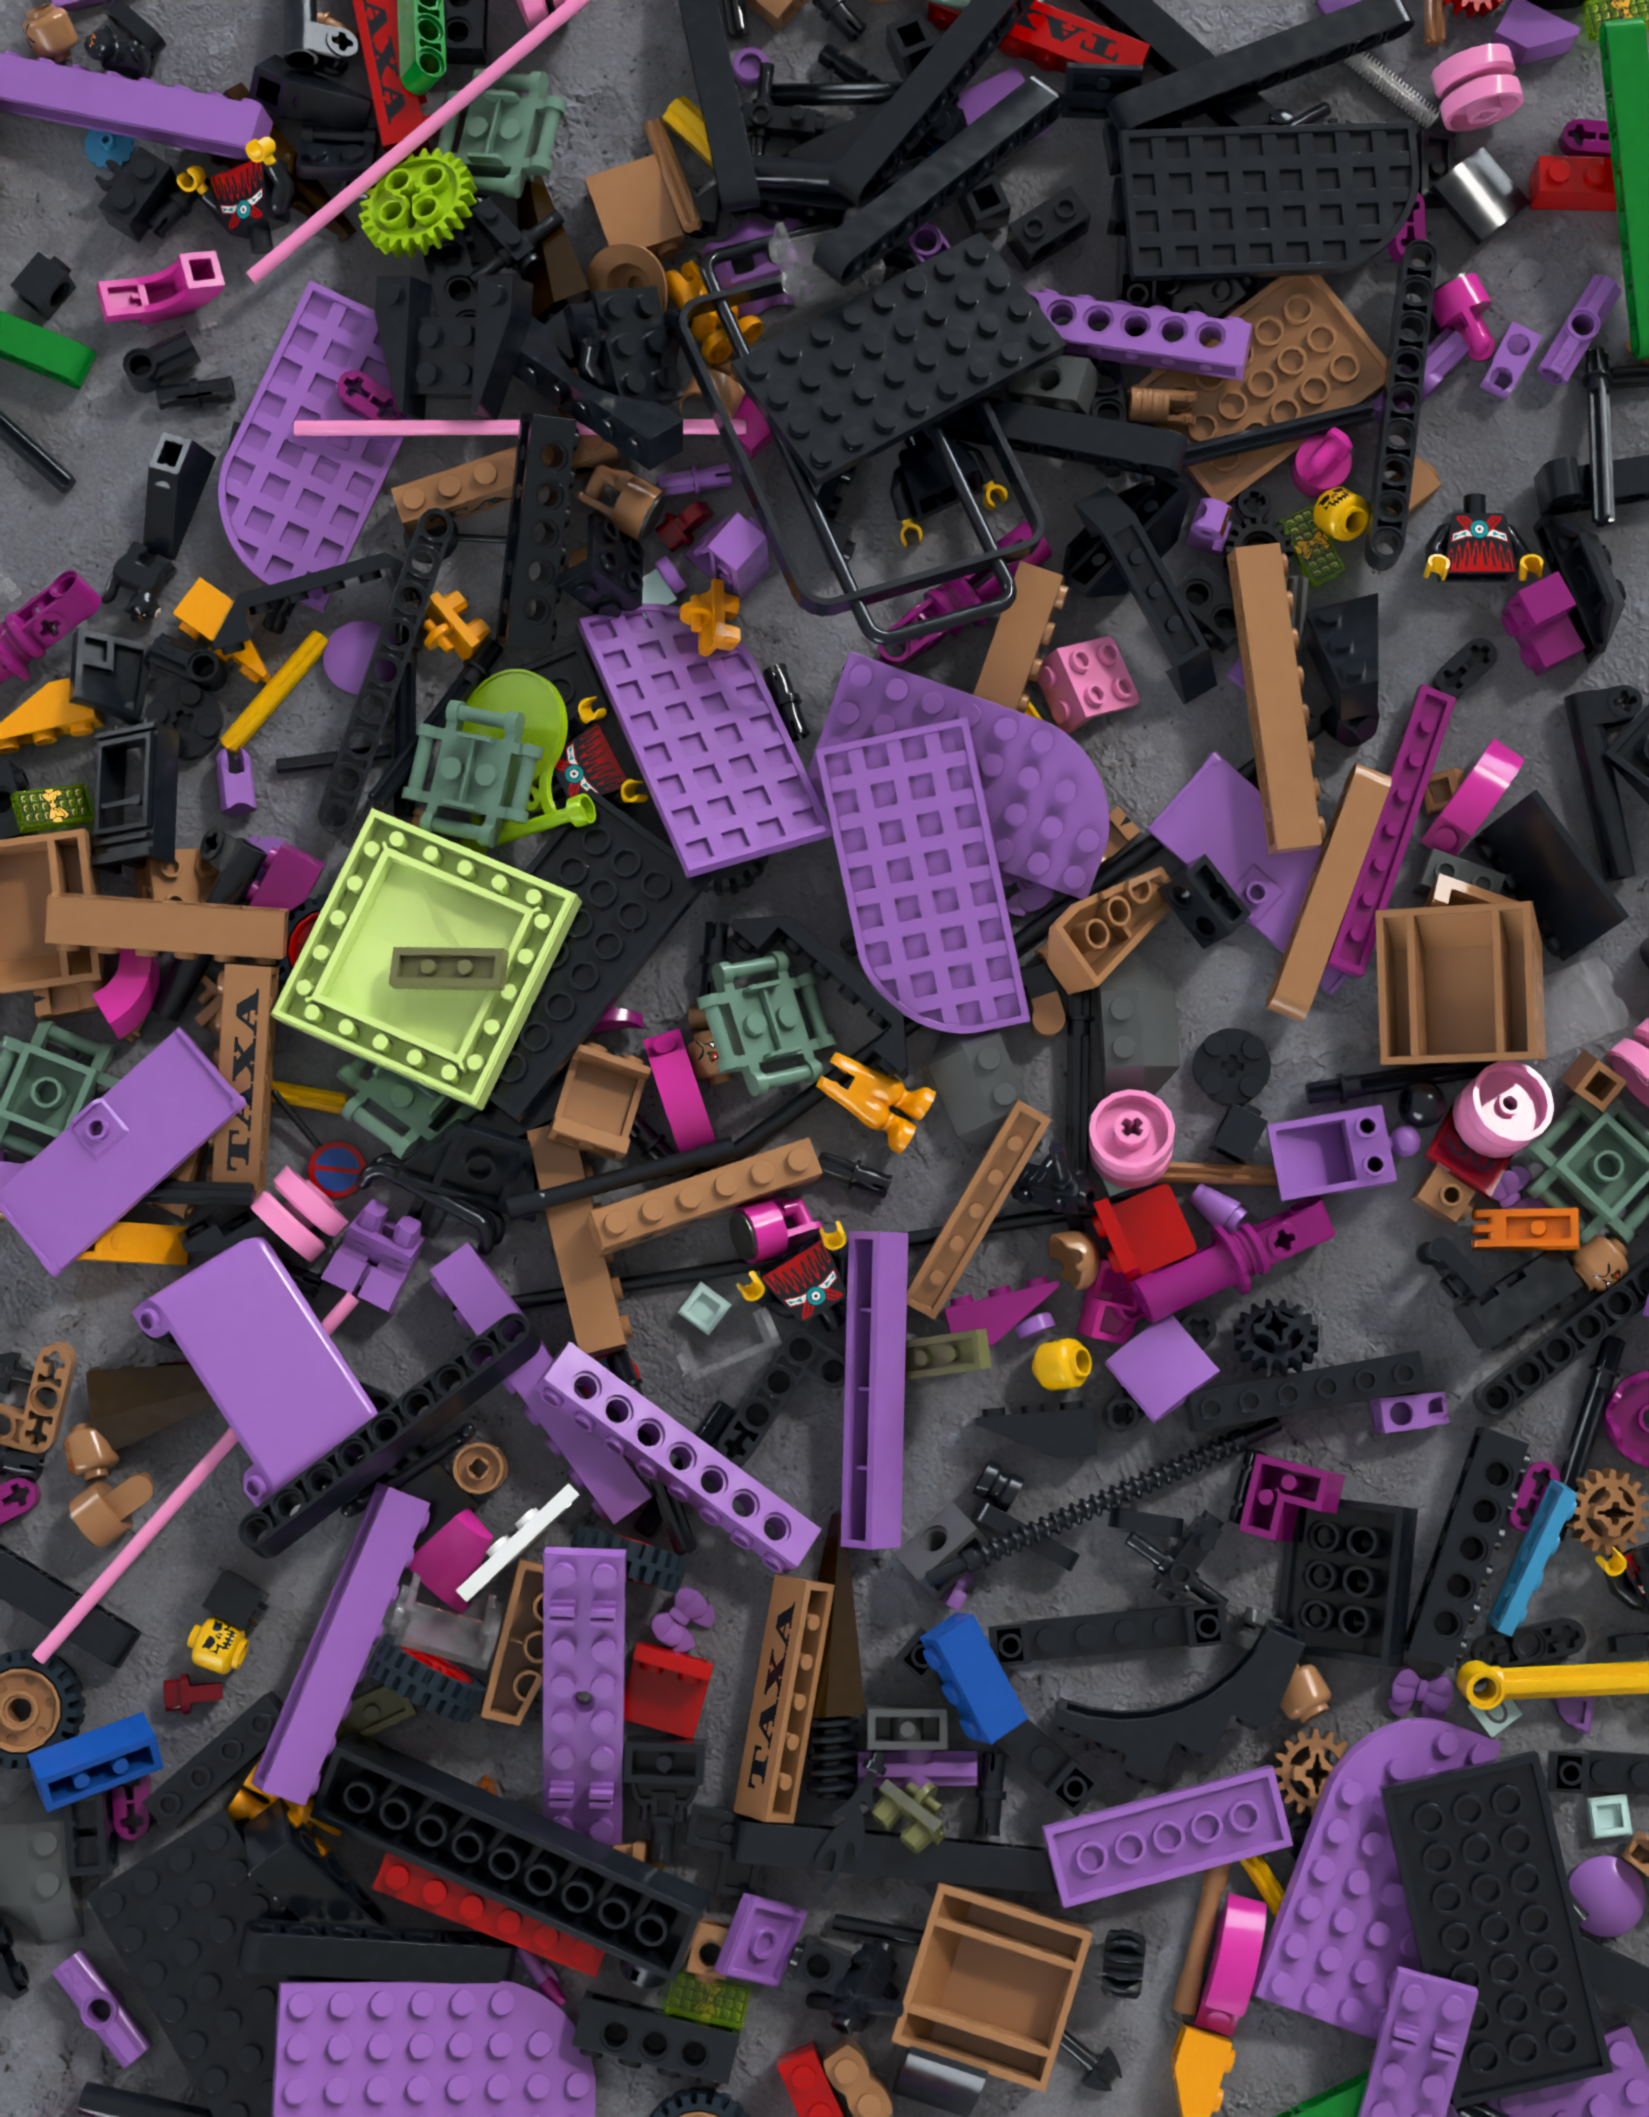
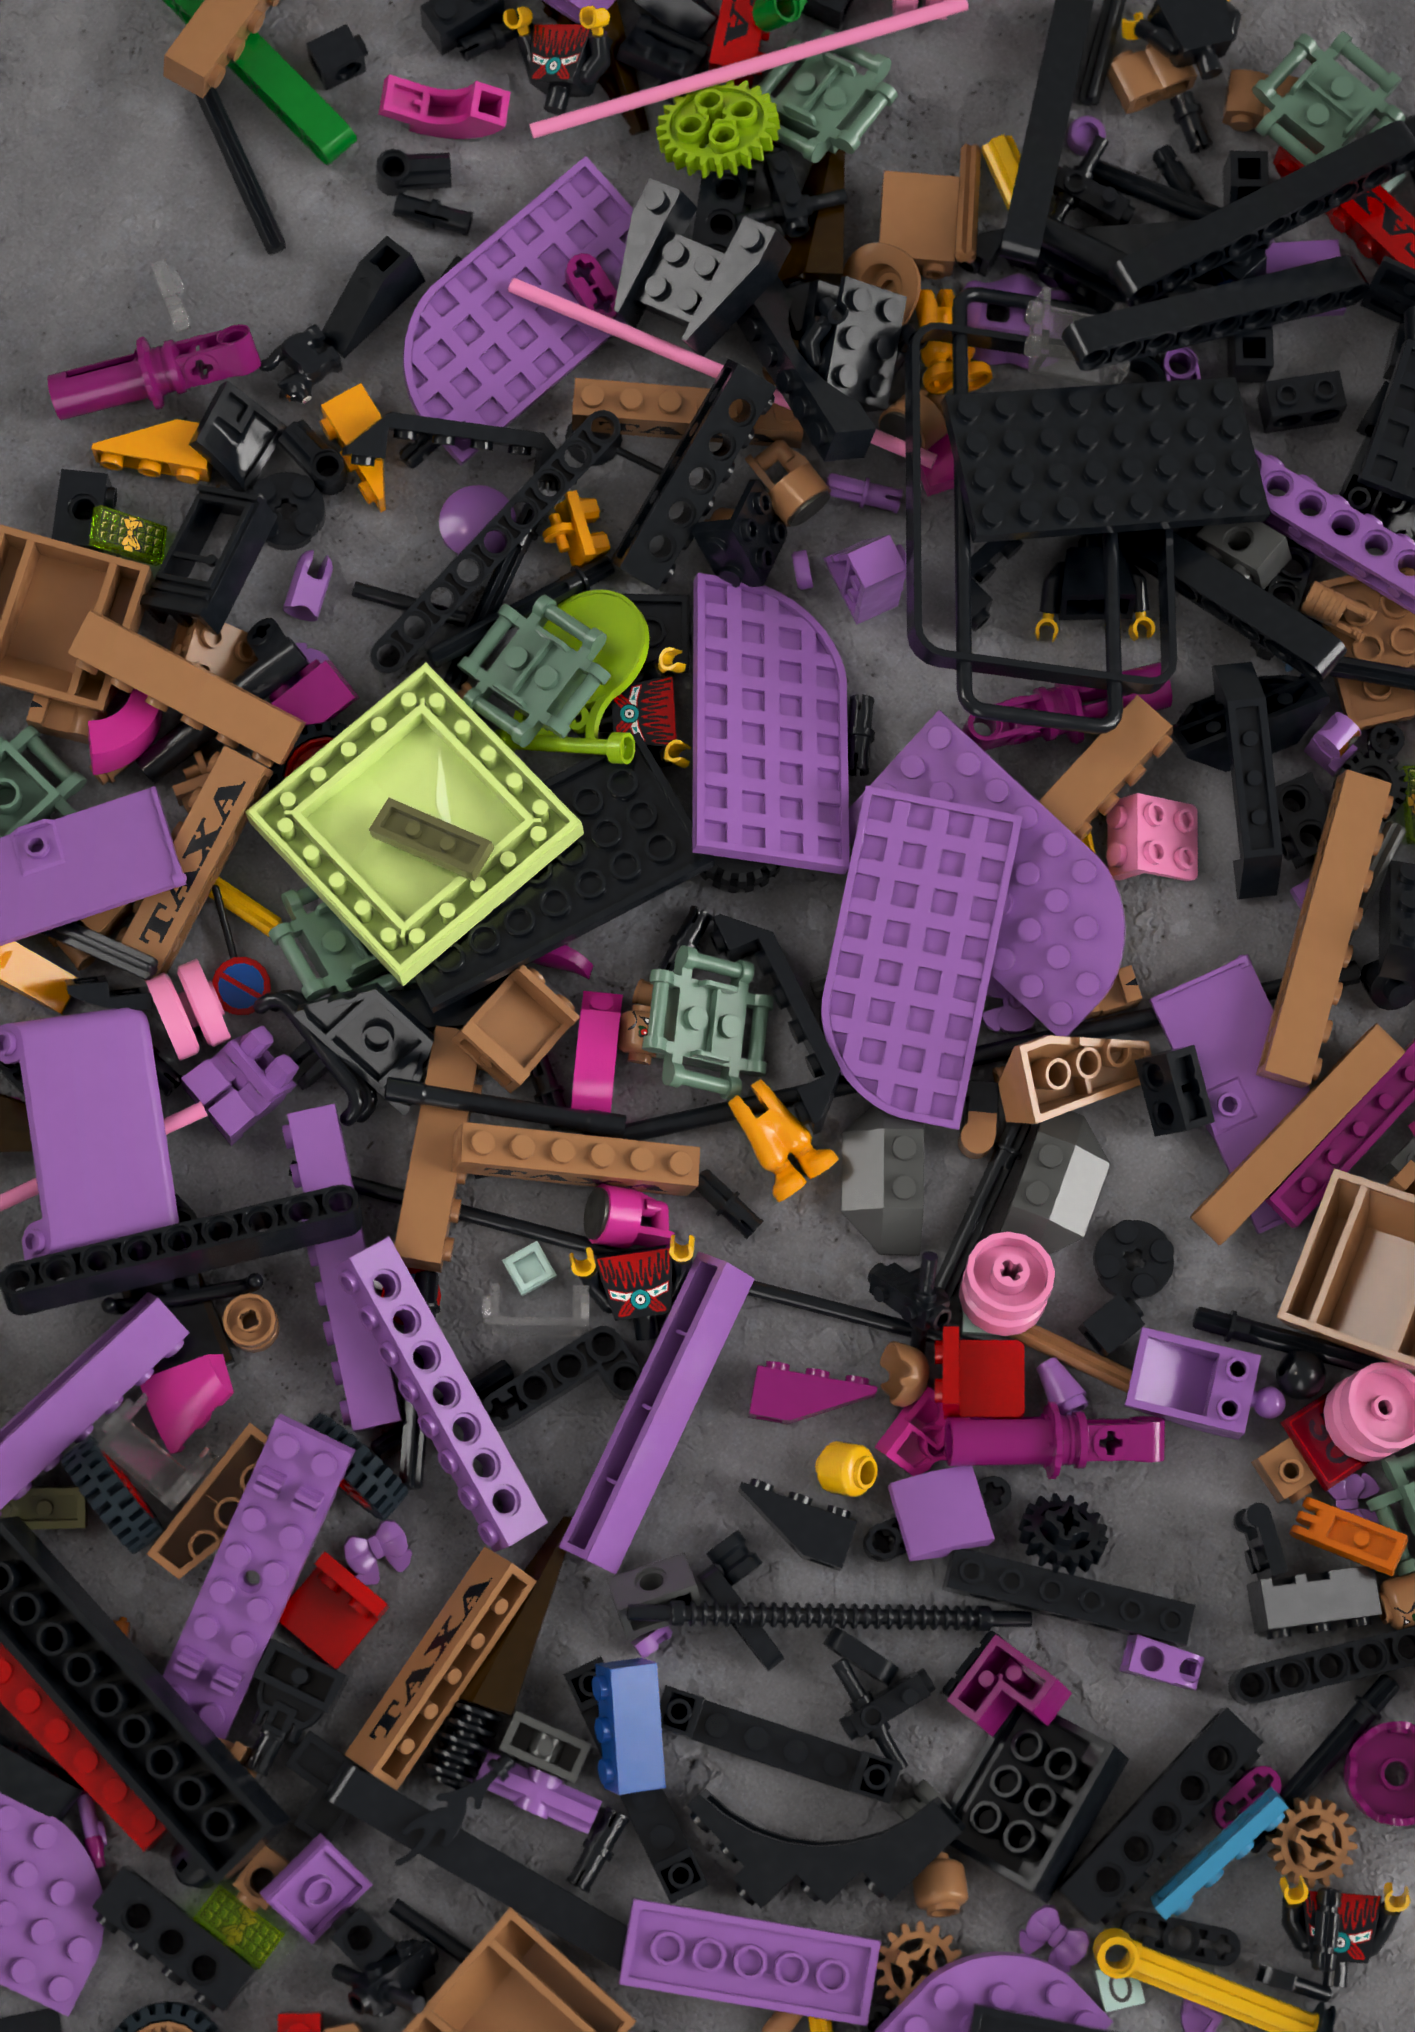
camera: 15 degrees right, 5 degrees down
(274, 692) = (382, 519): yellow axle -> none
(508, 1549) = (273, 1400): white wing -> none
(656, 591) = (783, 579): light aqua tile -> none
(678, 530) = (829, 531): dark red piece -> none
(707, 616) = (819, 622): light orange hips -> none
(923, 1825) = (504, 1814): olive hips -> none
(947, 1354) = (740, 1408): olive plate -> none
(976, 1208) = (829, 1285): medium nougat plate -> none
(1035, 1326) = (836, 1422): medium lavender tile -> none

